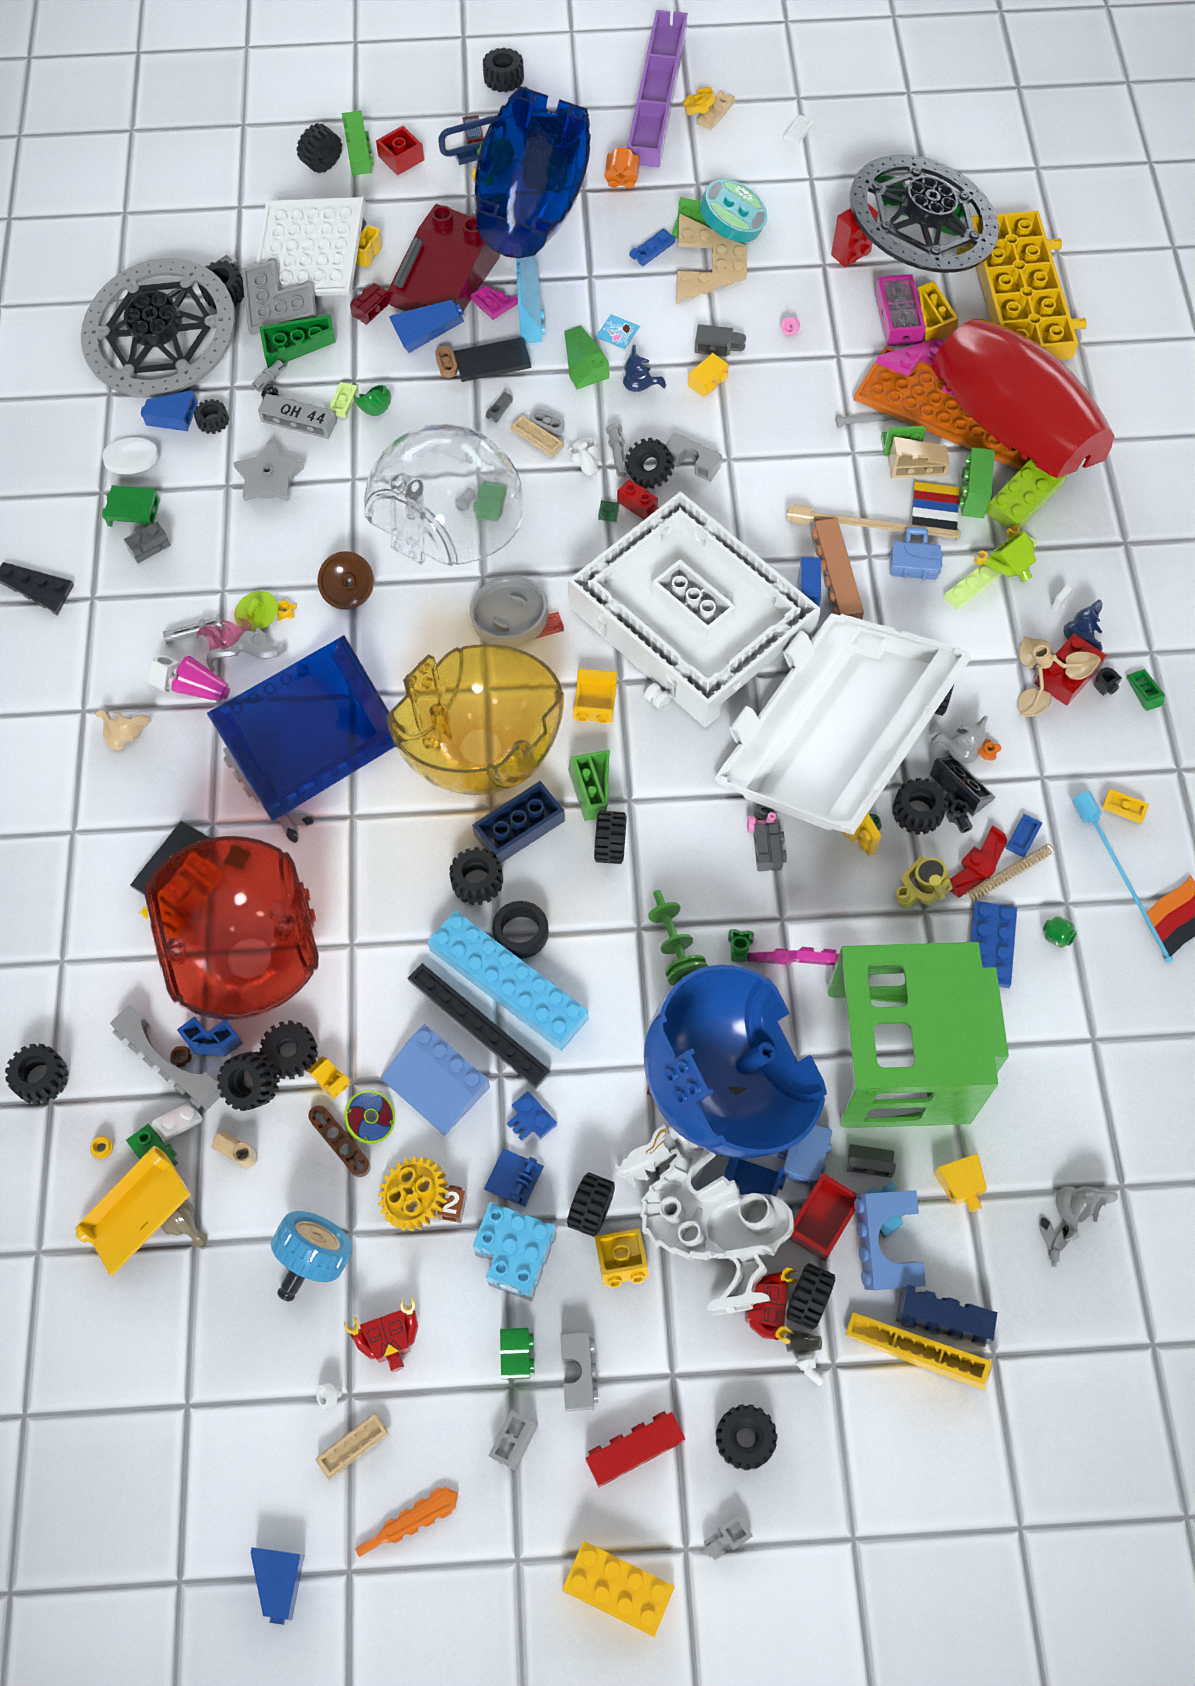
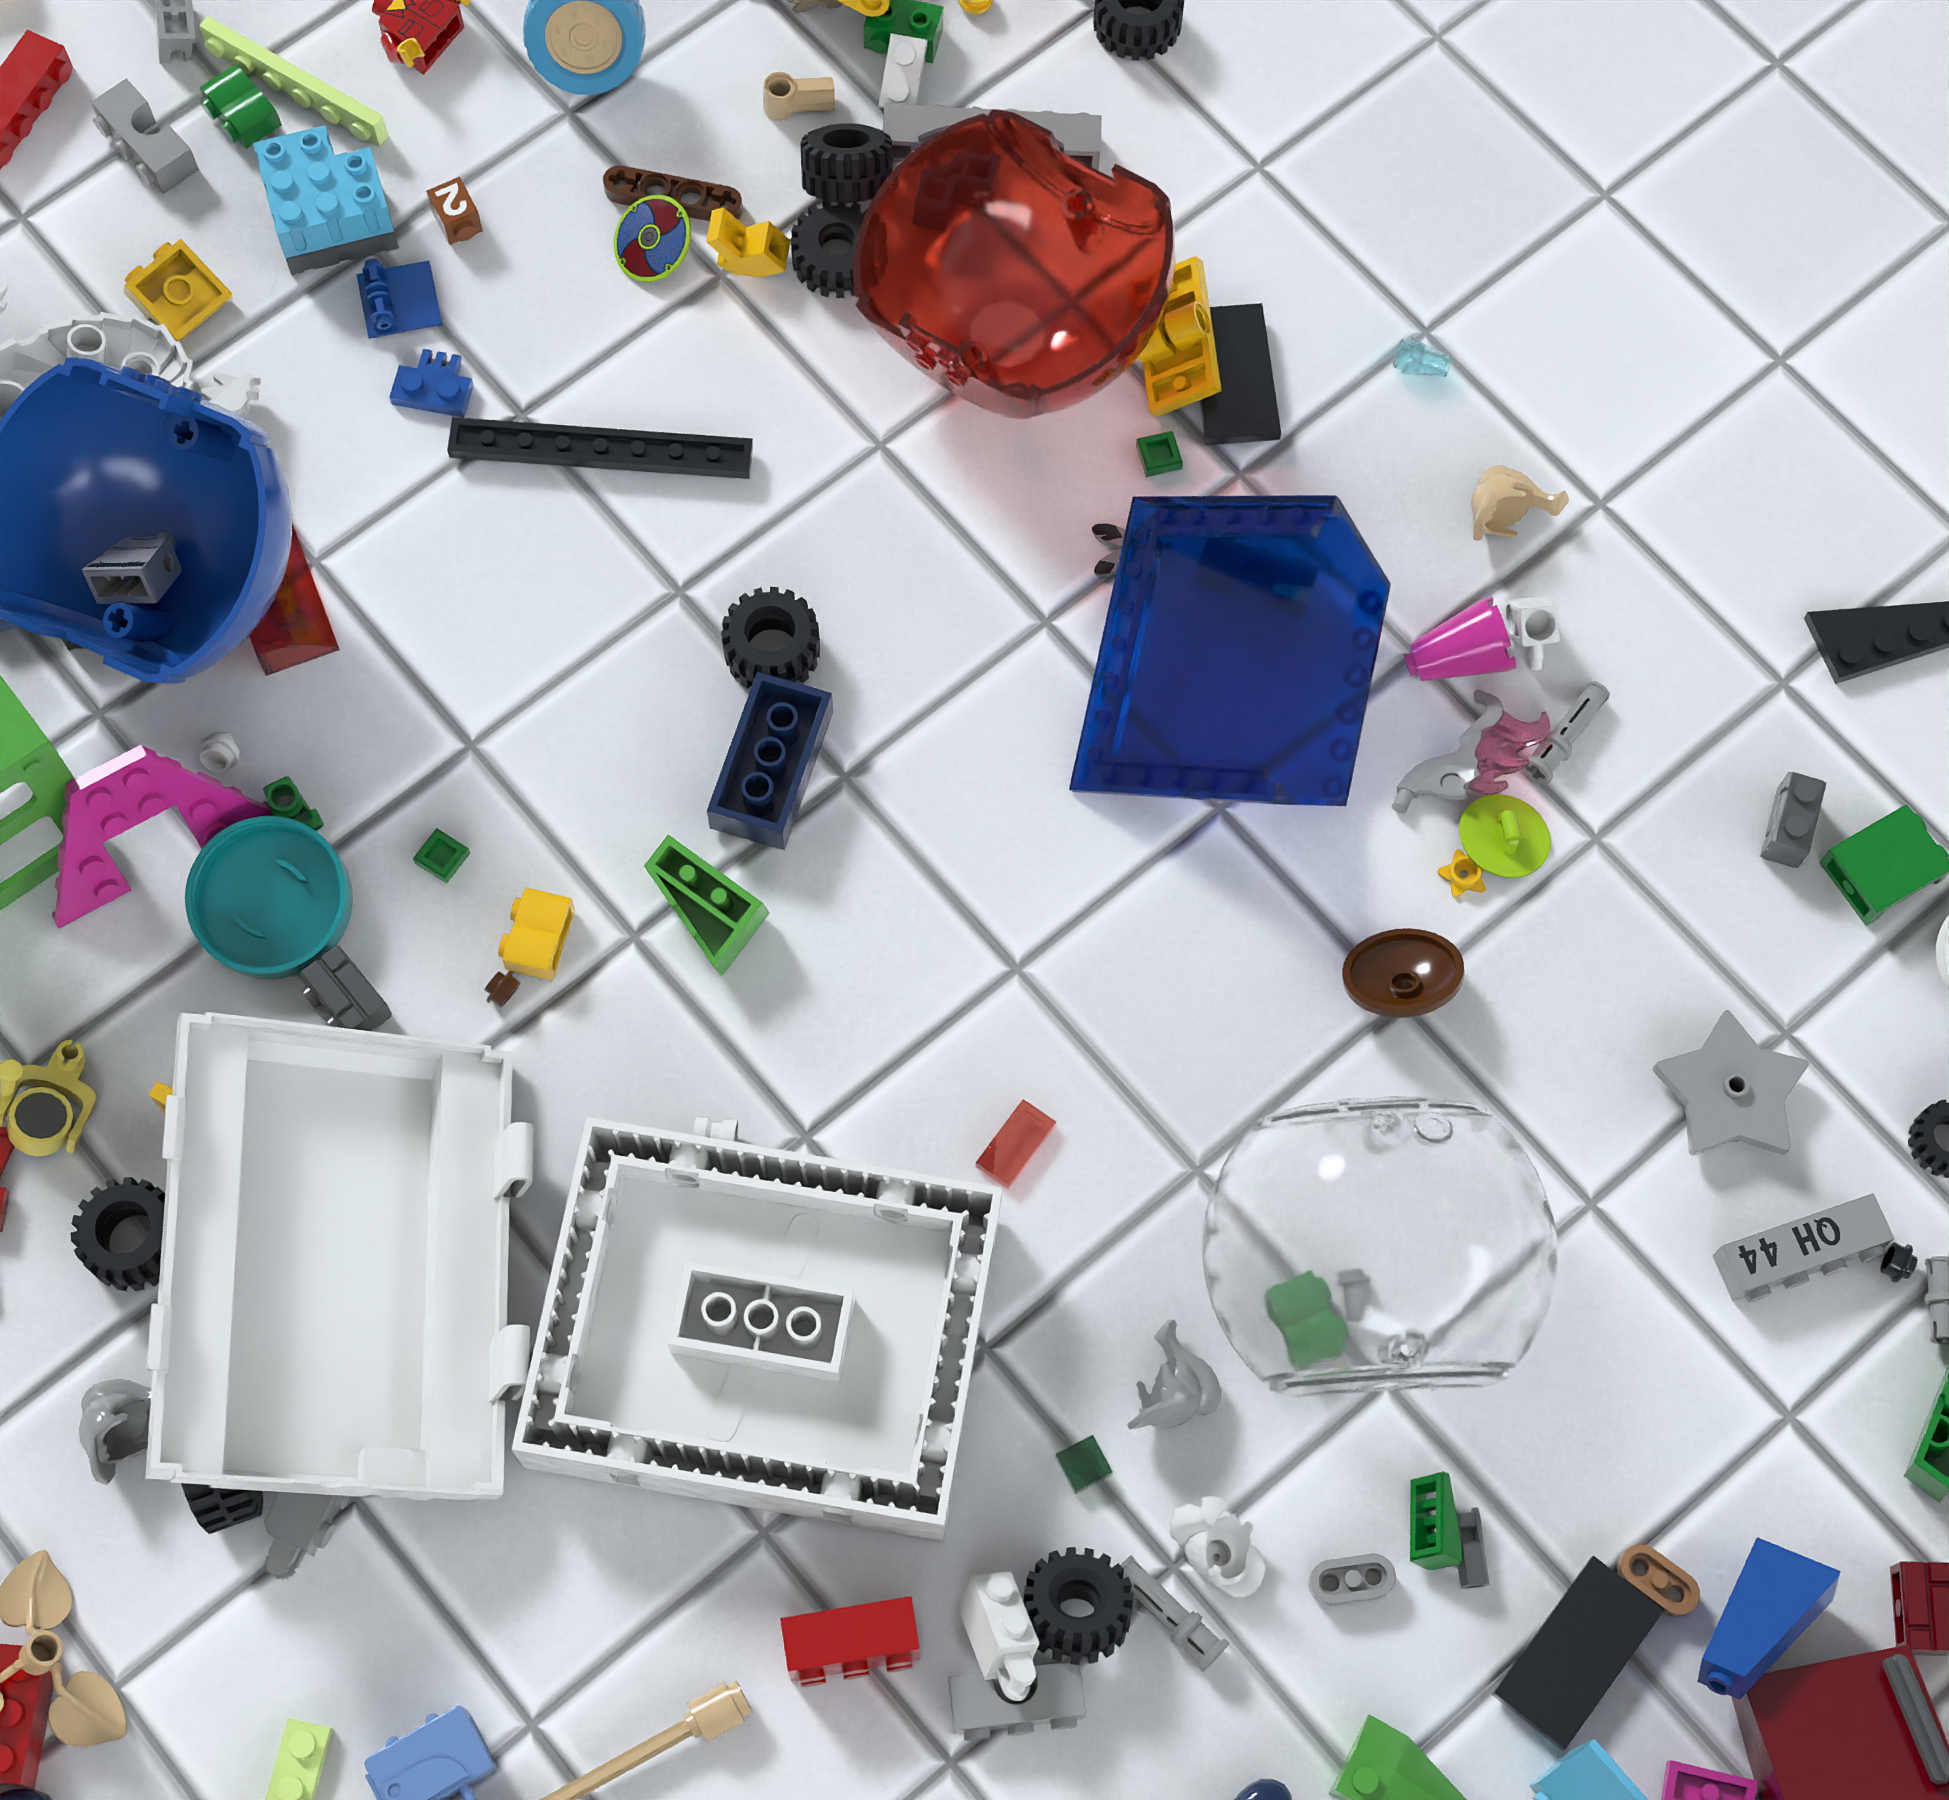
camera: 140 degrees right, 5 degrees up
(92, 817) = (1420, 359): none -> clear light blue cone
(343, 399) = (1760, 1347): yellowish green plate -> none
(374, 401) = (1701, 1377): green piece -> none
(413, 1193) = (488, 185): yellow gear -> none
(435, 1080) = (601, 346): medium blue slope -> none
(477, 718) = (938, 805): clear yellow windscreen -> none
(481, 1358) = (302, 86): none -> yellowish green plate
(508, 980) = (603, 528): medium azure brick -> none
(509, 611) = (1087, 1118): light grey piece -> none
(516, 413) = (1444, 1546): none -> green slope
(521, 909) = (634, 575): black tyre -> none
(537, 436) = (1343, 1531): tan plate -> none
(558, 507) = (1181, 1389): none -> light grey piece
(590, 1204) = (255, 308): black tyre -> none
(595, 696) = (819, 1066): yellow panel -> none
(610, 837) = (602, 820): black tyre -> none
(637, 499) = (1043, 1518): red brick -> none
(669, 820) = (537, 933): none -> yellow brick
(676, 943) = (342, 703): bright green piece -> none
(683, 468) = (1000, 1632): none -> white brick
(686, 885) = (441, 855): none -> green tile
(700, 808) = (501, 988): none -> reddish brown plate
(737, 500) = (850, 1641): none -> red piece
(741, 1078) = (134, 570): none -> light grey torso
(752, 821) = (397, 1022): bright pink piece -> none
(775, 907) = (268, 897): none -> teal brick
(810, 578) = (584, 1532): blue brick -> none
(837, 568) = (563, 1627): nougat brick -> none
(955, 777) = (78, 1336): black slope -> none
(958, 812) = (46, 1263): black axle -> none
(985, 753) = (58, 1449): orange plate -> none

